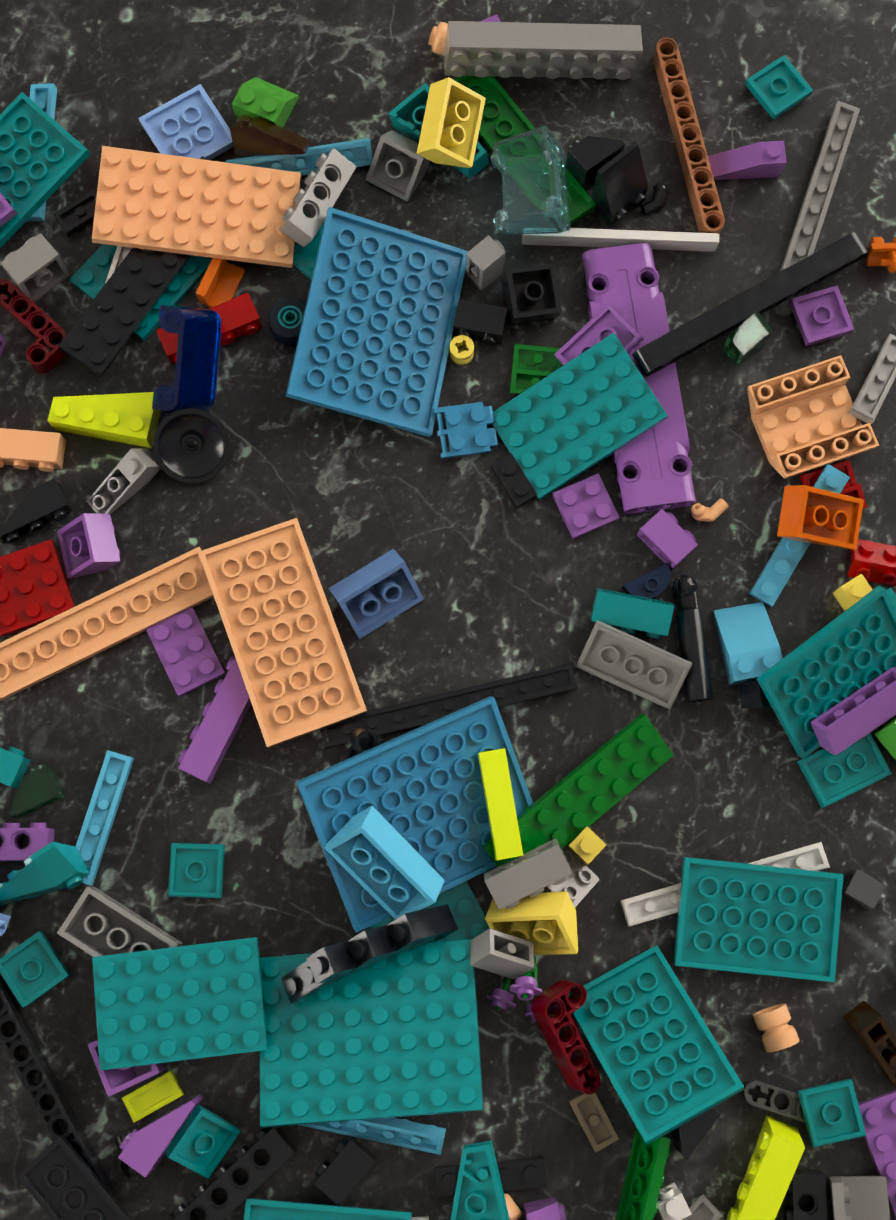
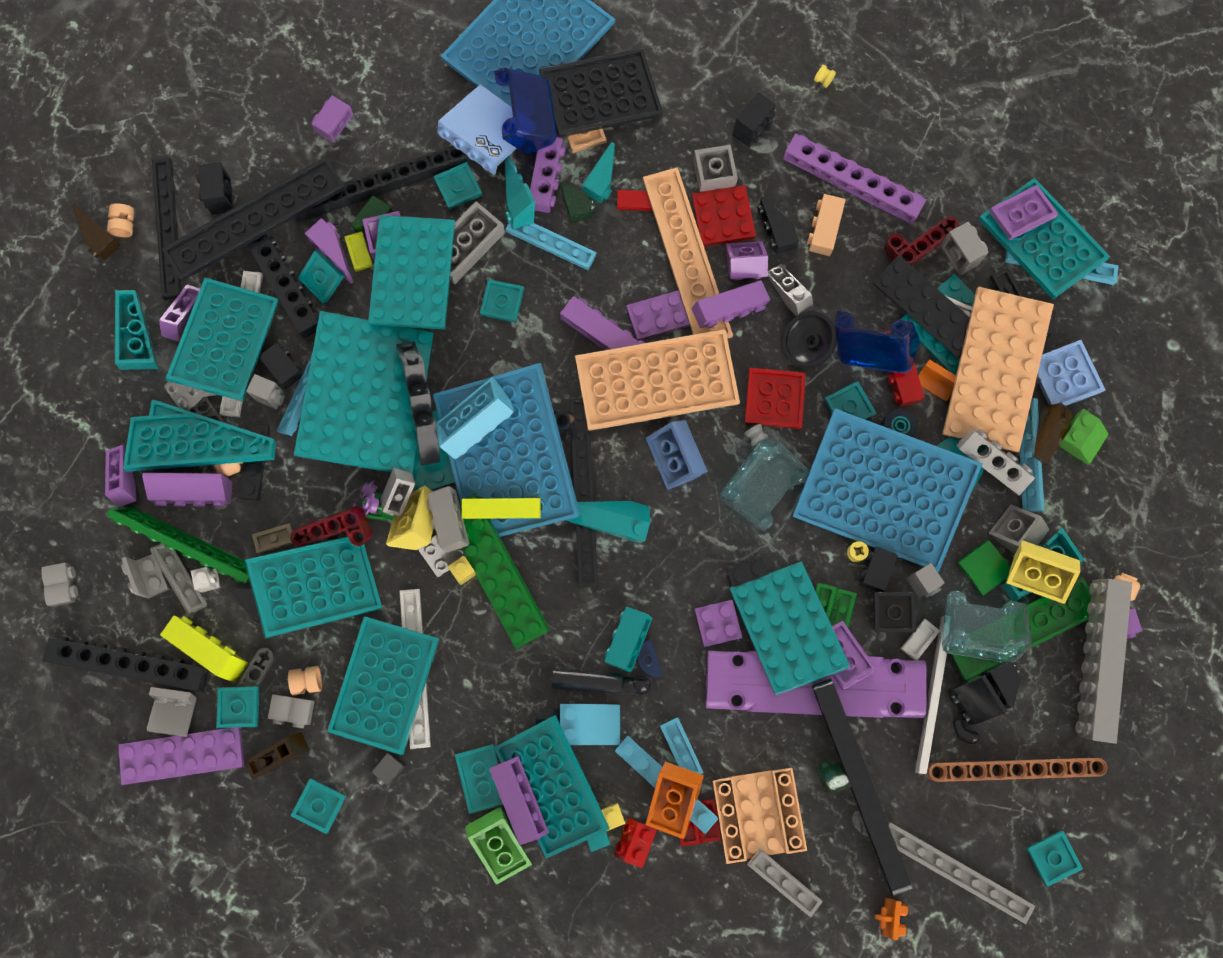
camera: 100 degrees right, 0 degrees up
(20, 714) = (633, 200): none -> red tile
(89, 1086) = (373, 208): none -> dark green slope
(110, 417) = (842, 283): neon yellow wedge -> none
(159, 554) = (730, 304): none -> medium lavender brick
(268, 384) = (852, 401): none -> teal plate
(277, 480) = (775, 398): none -> red plate
(332, 495) = (756, 435): none -> light grey wheel
(390, 1181) = (265, 392): none -> light grey brick
(394, 479) = (763, 482): none -> clear light blue windscreen
(451, 199) = (984, 567): none -> green slope
(466, 429) = (792, 543): dark azure plate -> none
(476, 651) = (617, 518): none -> teal wedge
(566, 267) = (920, 640): none -> white tile
(633, 664) = (588, 632): light grey tile -> none
(667, 538) = (681, 679): medium lavender brick -> none
(708, 514) = (696, 717): light nougat arm -> none
(750, 161) = (988, 815): medium lavender slope -> none
(750, 525) = (680, 746): none -> medium azure plate
(818, 1038) = (291, 709): none -> light grey brick
(821, 315) = (846, 847): medium lavender plate -> none

